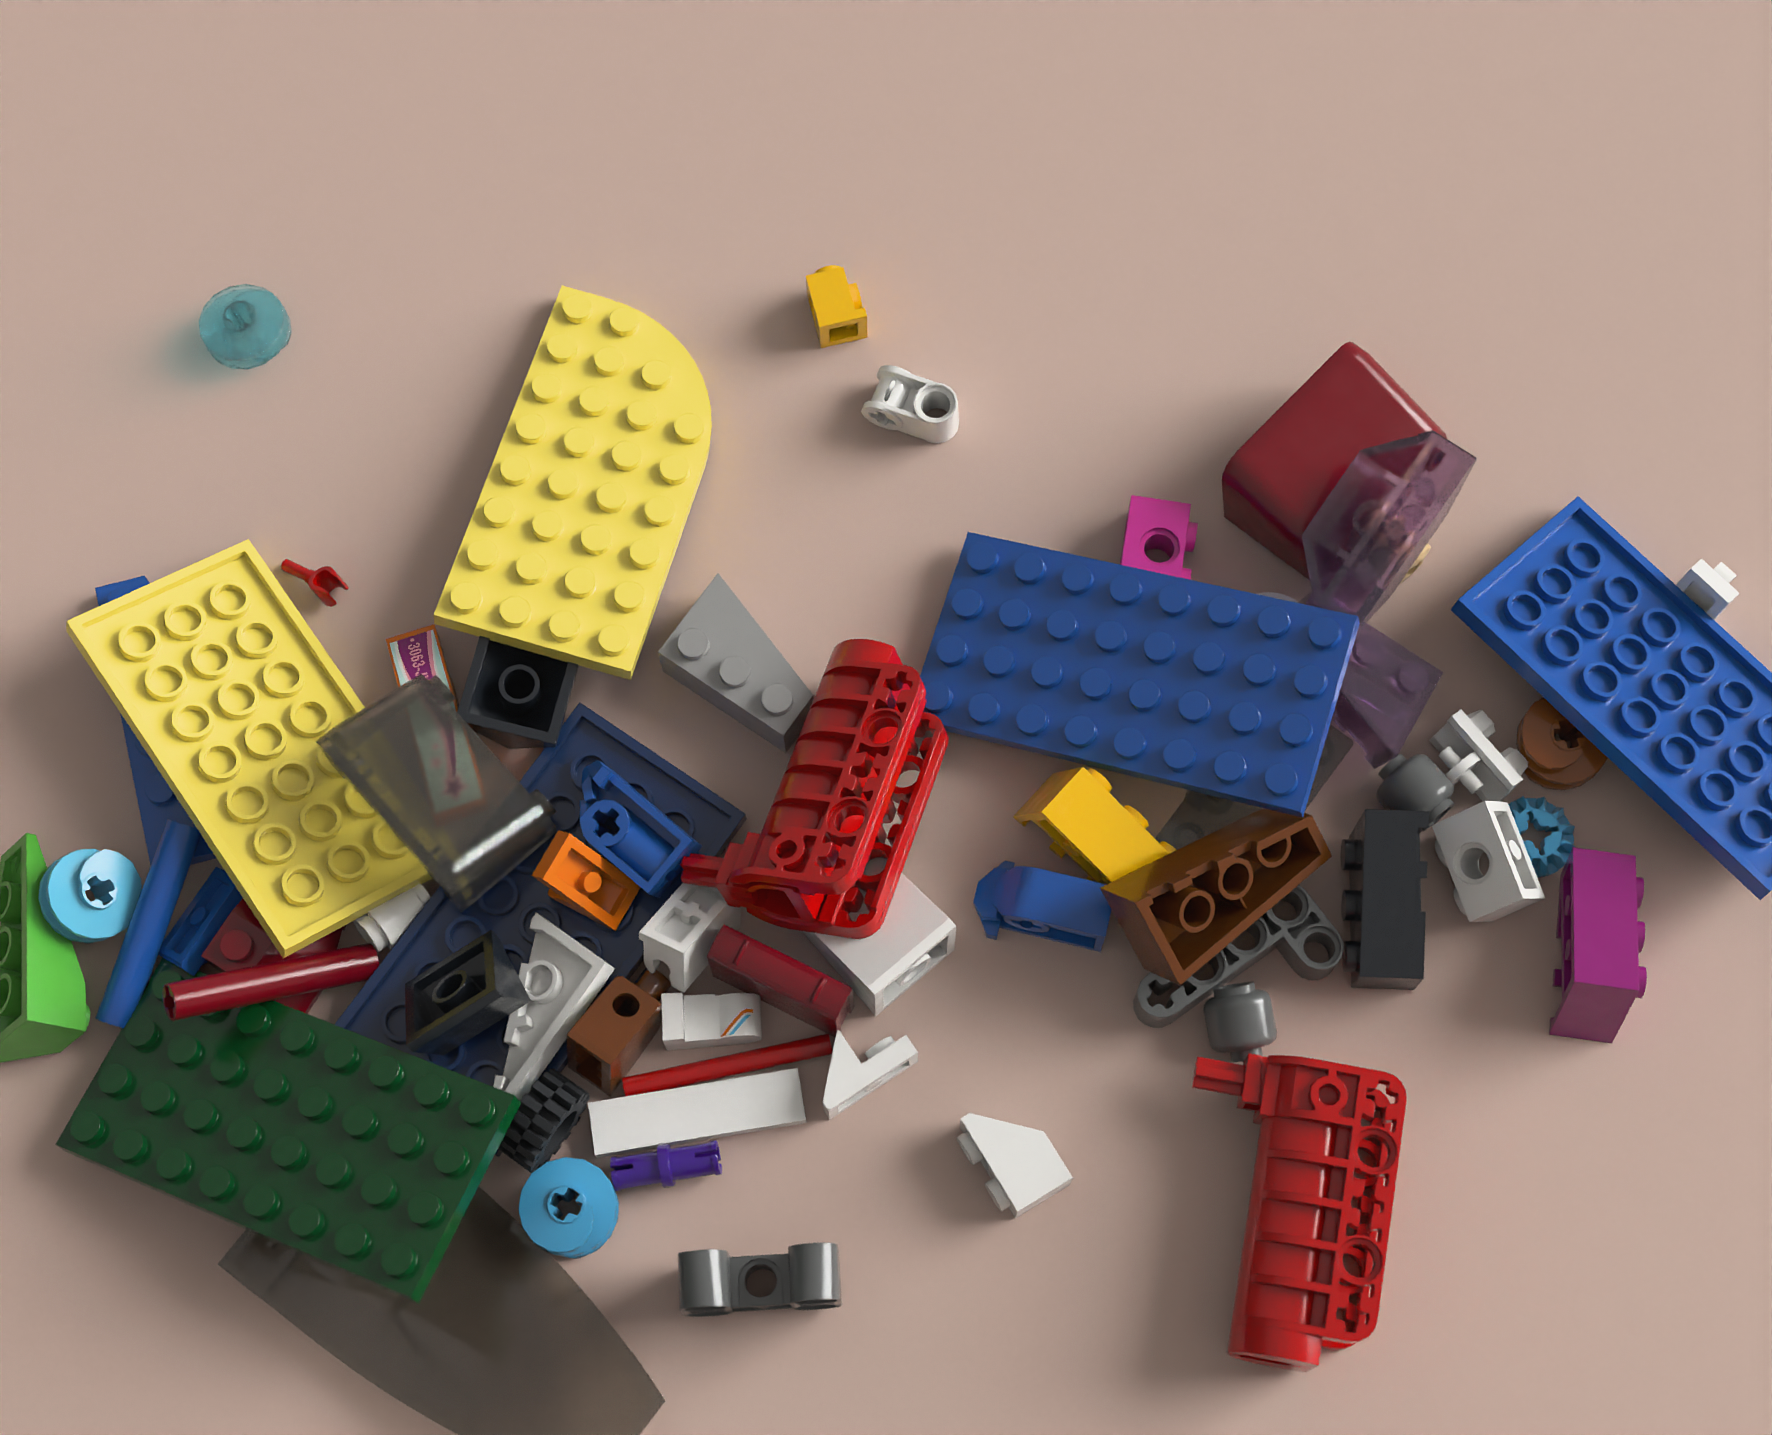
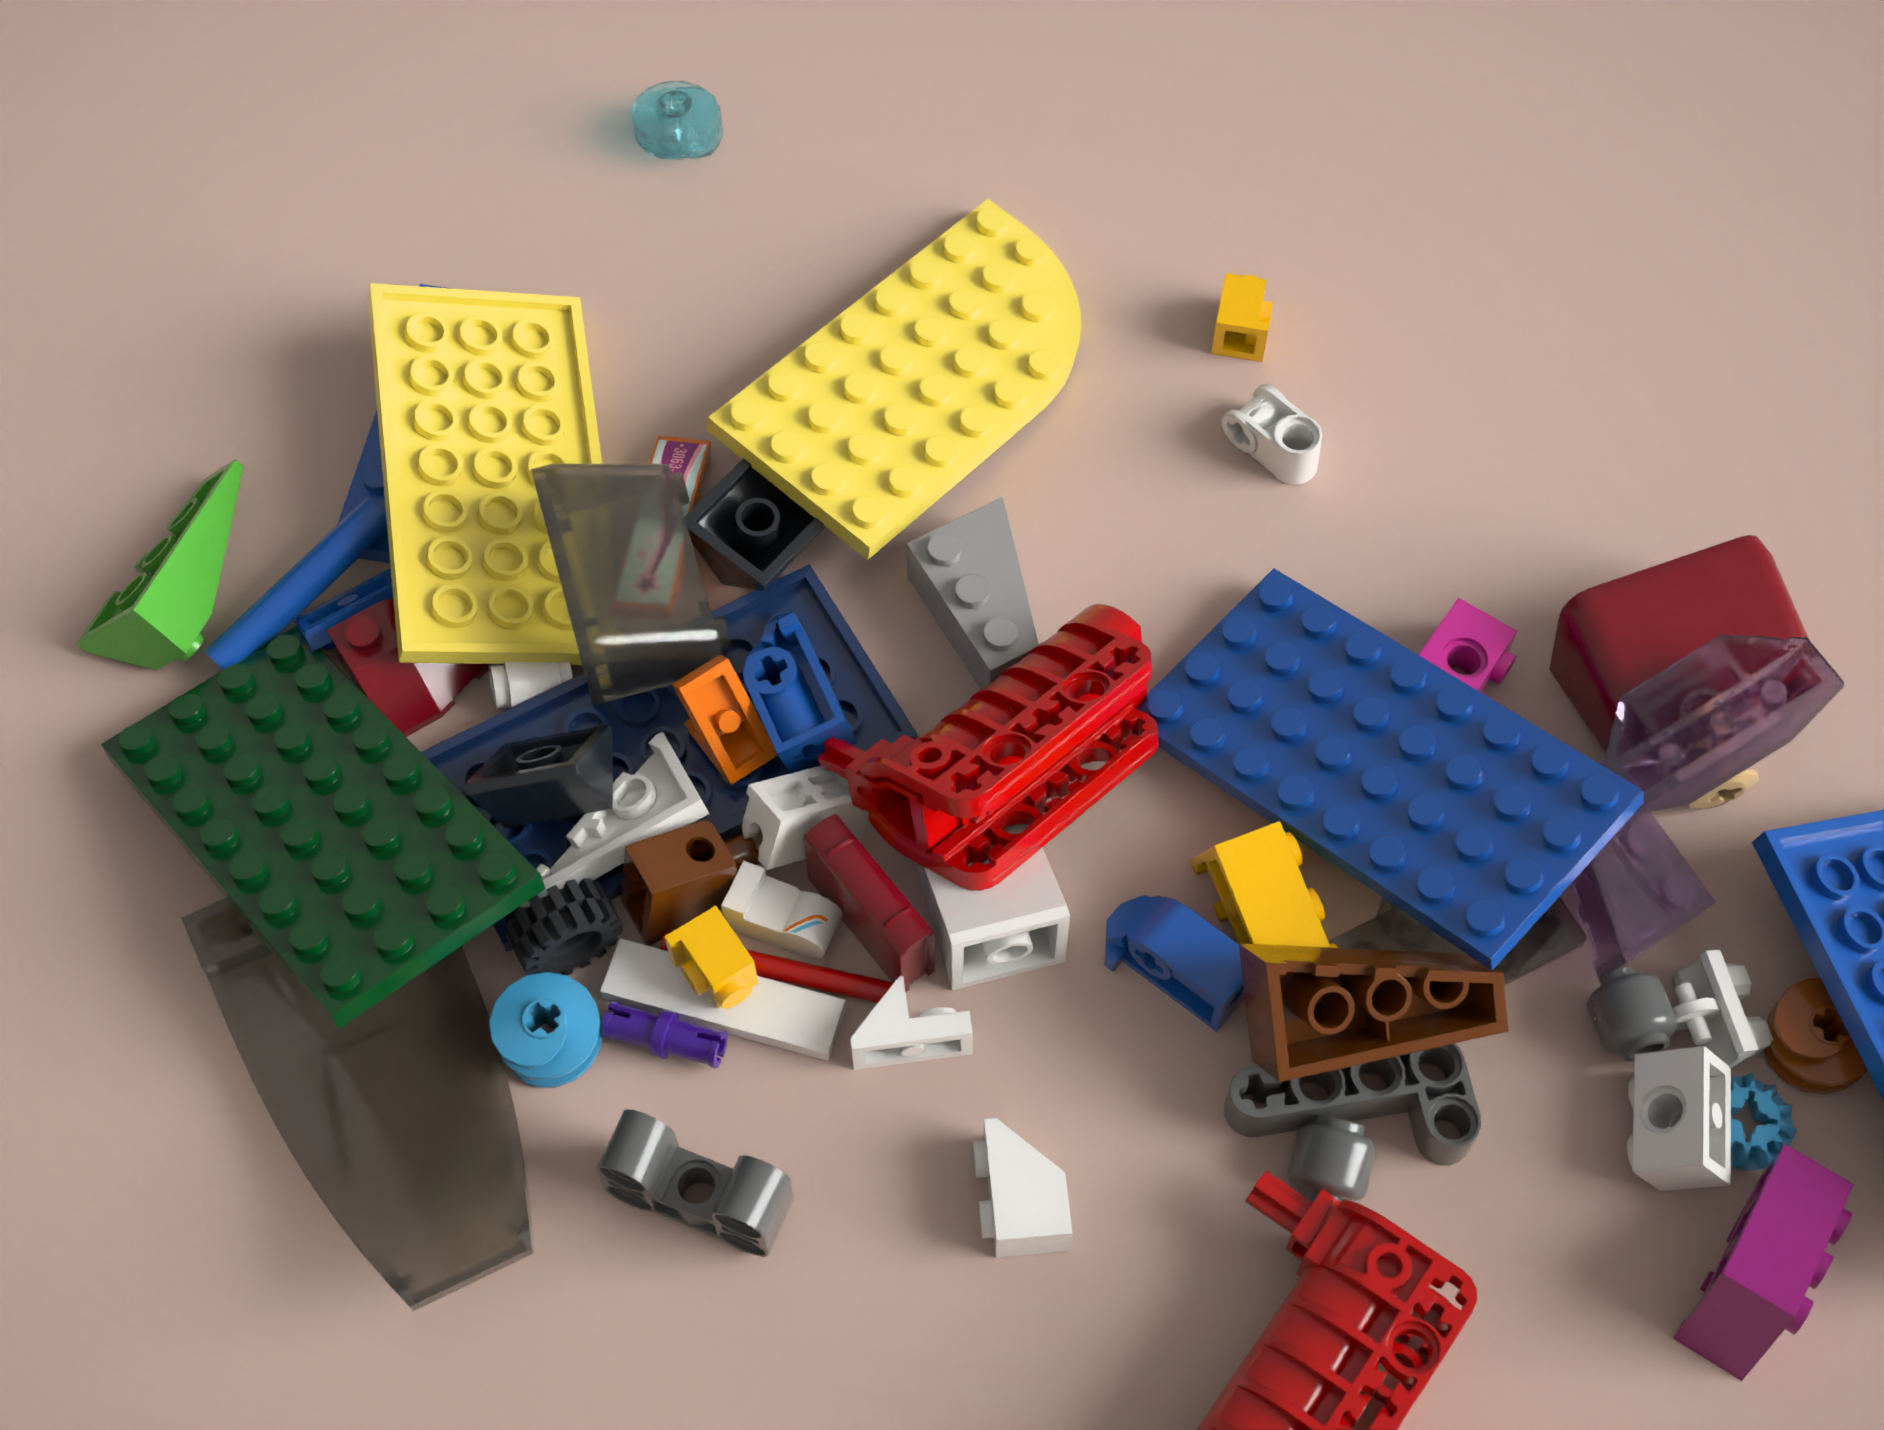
camera: 25 degrees right, 10 degrees down
(113, 884) = (274, 517): medium azure piece -> none
(269, 981) = (375, 679): dark red piece -> none
(319, 581) = (626, 362): red hand -> none
(680, 1089) = (713, 959): none -> yellow brick
(1385, 900) = (1549, 1106): black wedge -> none

